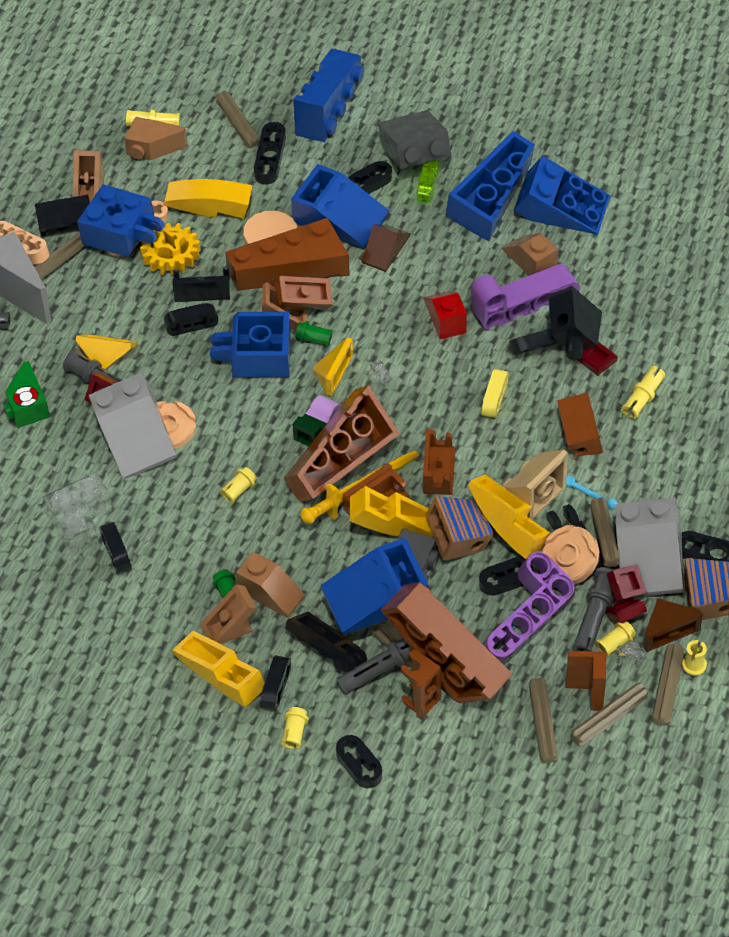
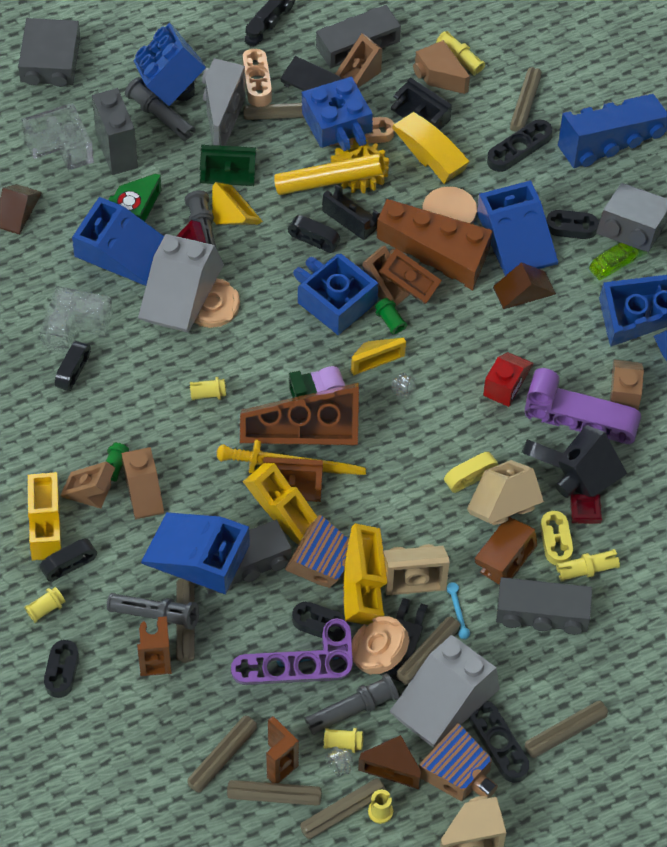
camera: 40 degrees right, 5 degrees up
(51, 433) = (117, 241): none -> blue slope
(55, 168) = (338, 39): none -> dark grey brick
(67, 319) = (228, 165): none -> dark green hinge
(159, 171) = (422, 101): none -> black hinge
(160, 266) = (330, 174): none -> yellow piece
(327, 641) = (133, 544): black hinge -> none
(438, 464) = (365, 492): dark orange hinge -> none
(466, 665) = (193, 631): wedge -> none
(540, 384) = (504, 492): none -> tan slope
(602, 390) = (563, 537): none -> light yellow beam
(626, 583) = (393, 703): dark red tile -> none
(626, 610) = (373, 724): dark red tile -> none
(646, 440) = (544, 605): none -> dark grey brick

